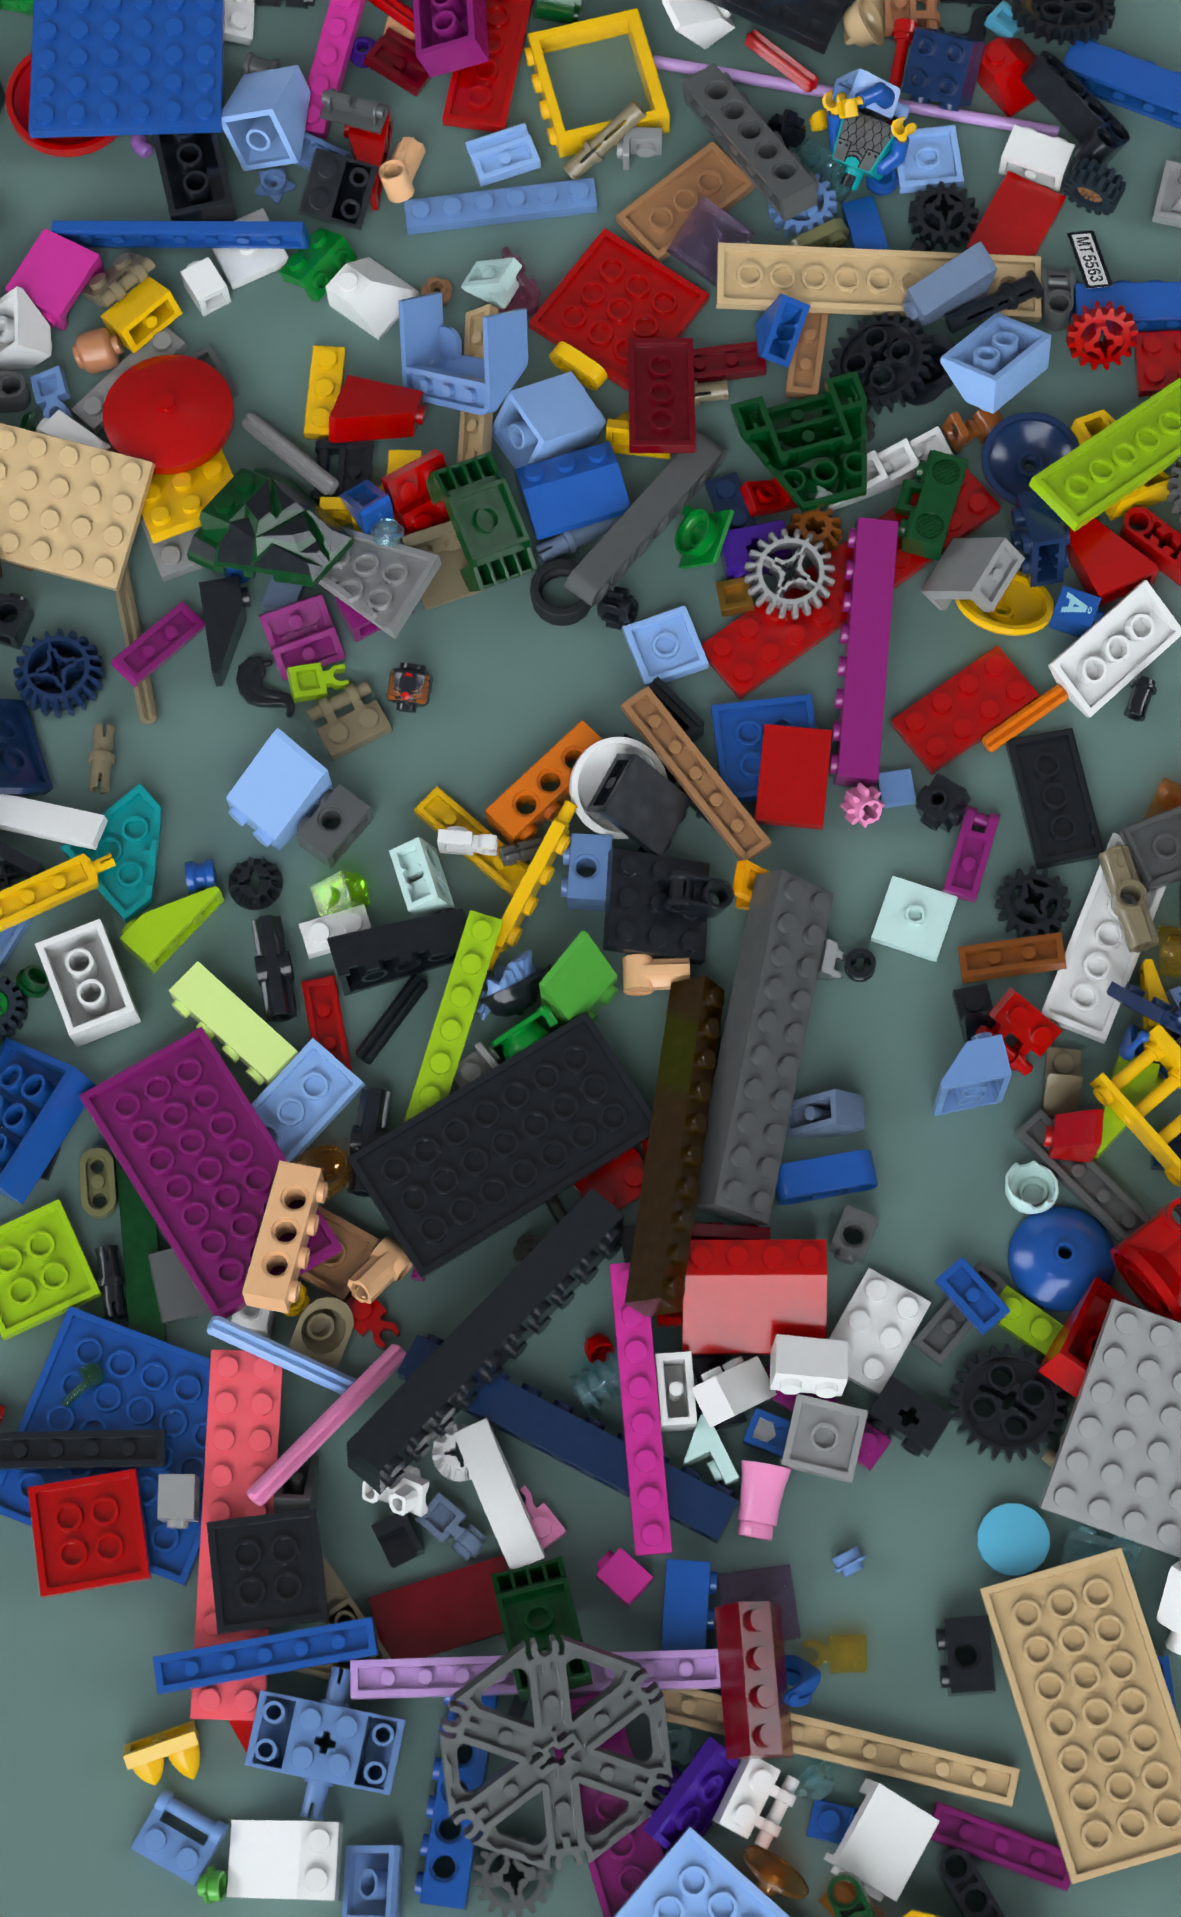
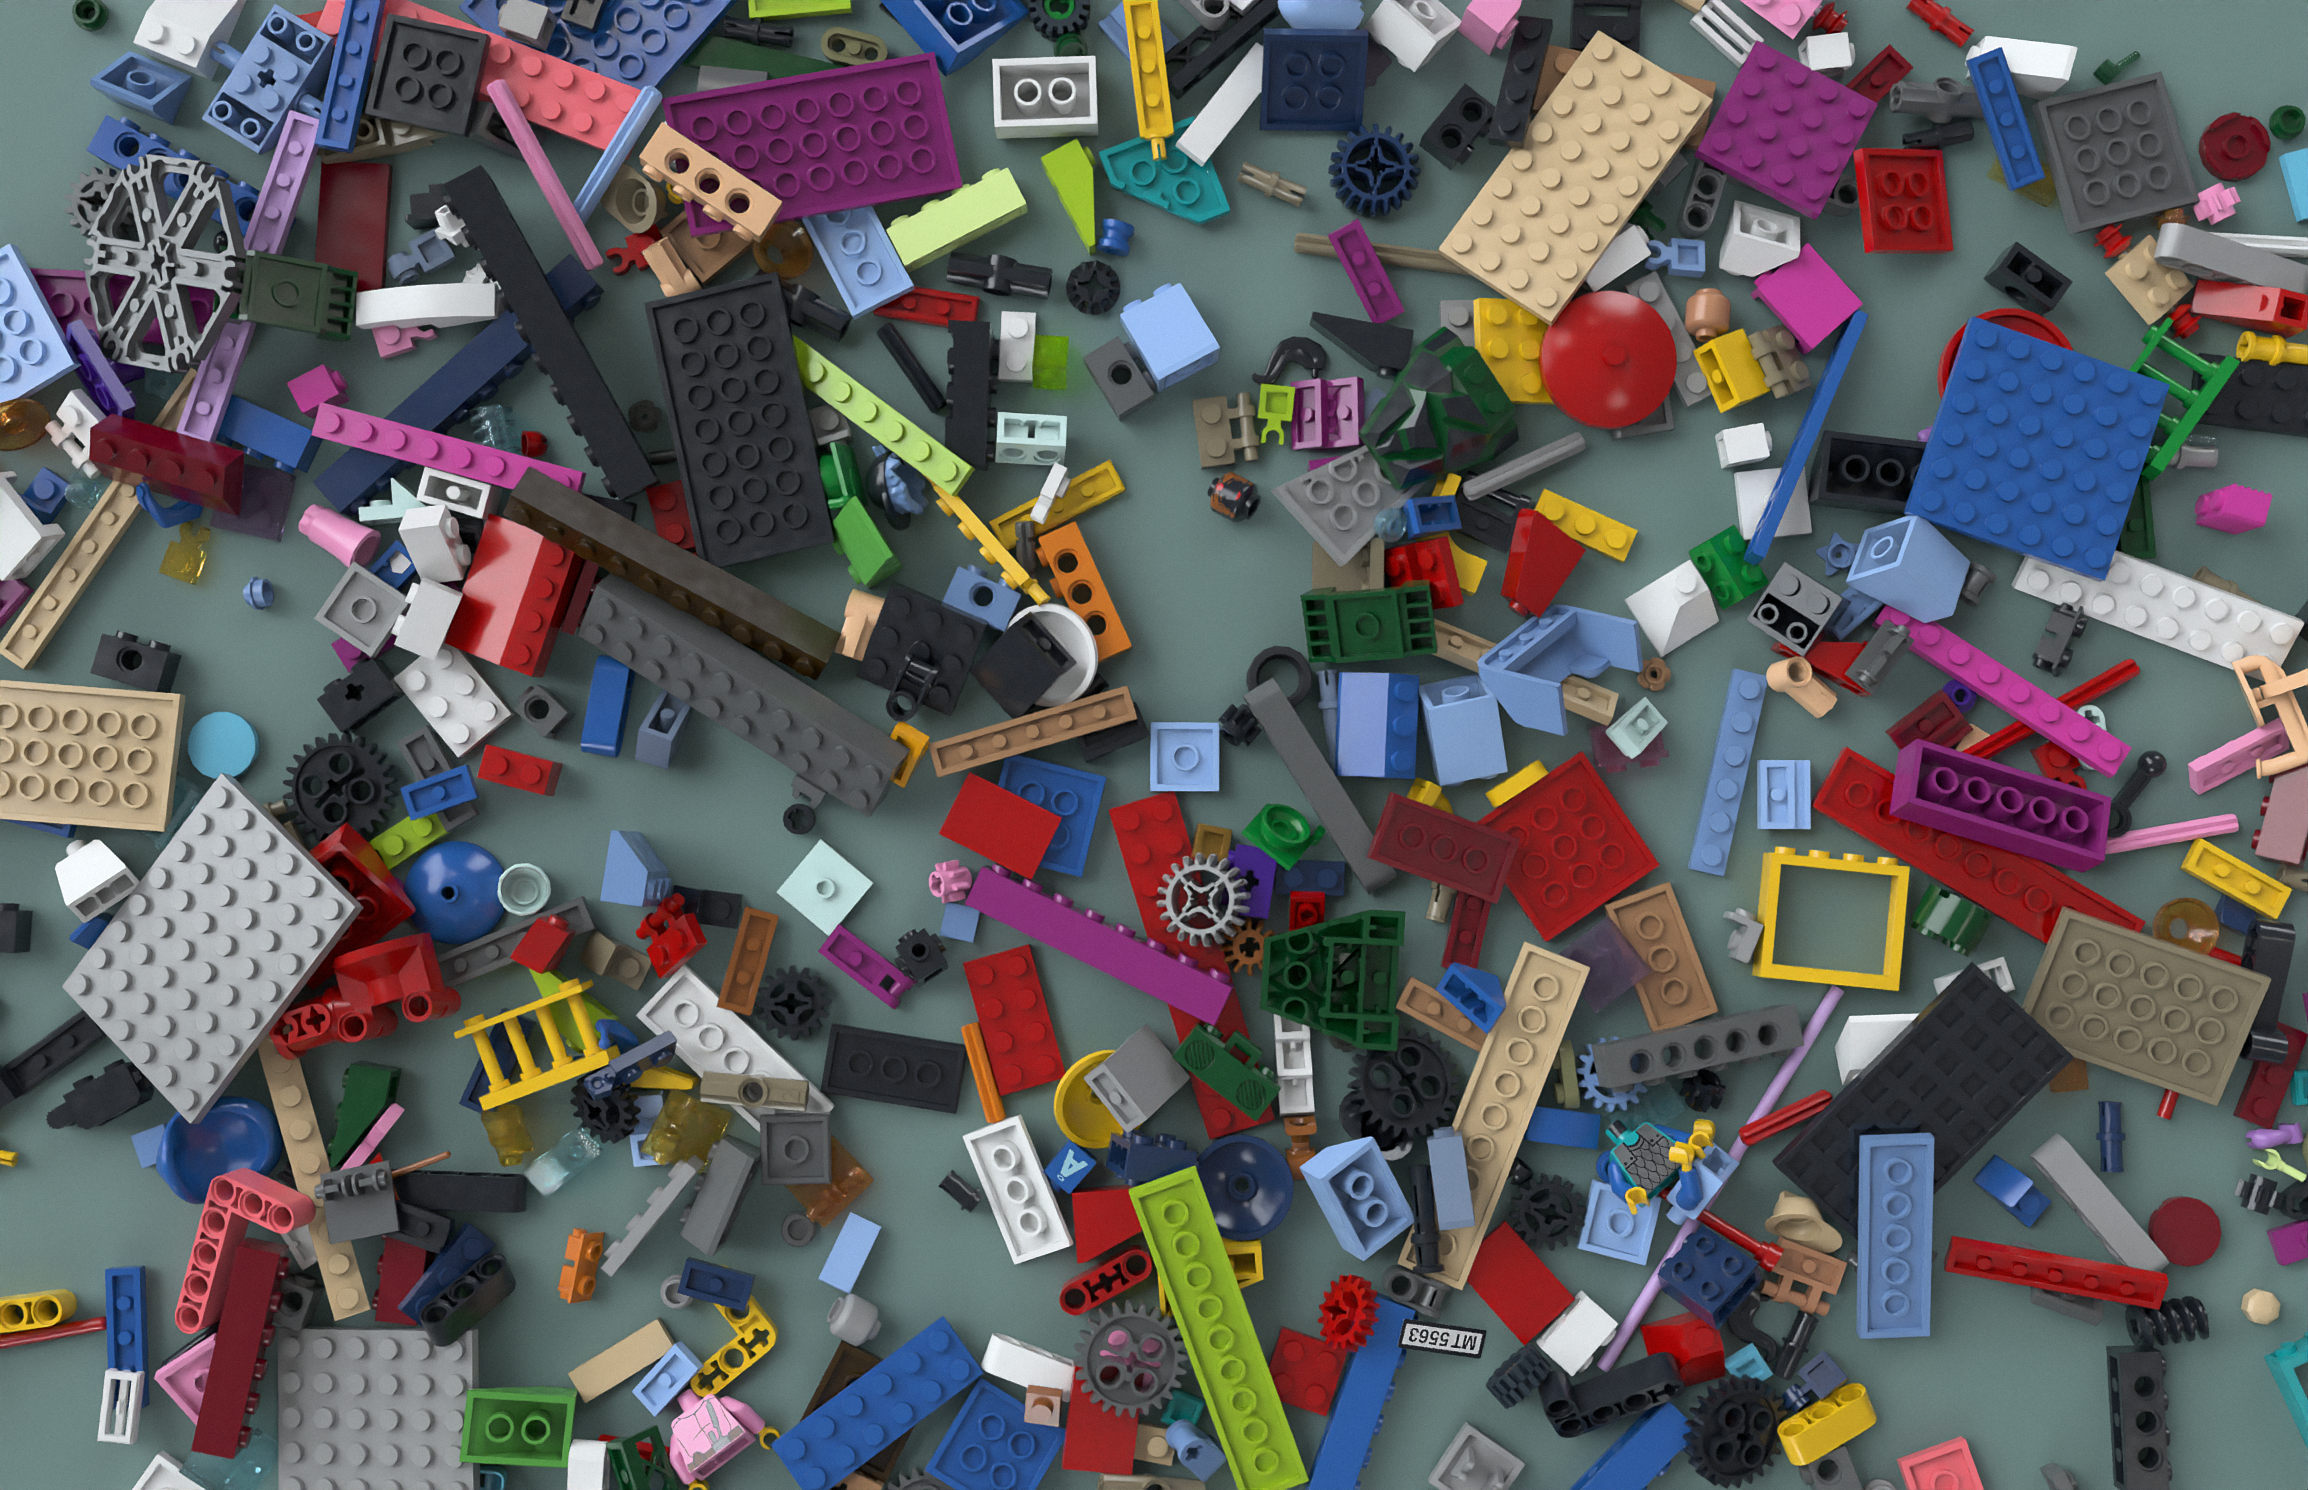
camera: 105 degrees right, 15 degrees up
(576, 167) = (1753, 897): dark tan pin -> none
(920, 1234) = (519, 770): none -> red brick

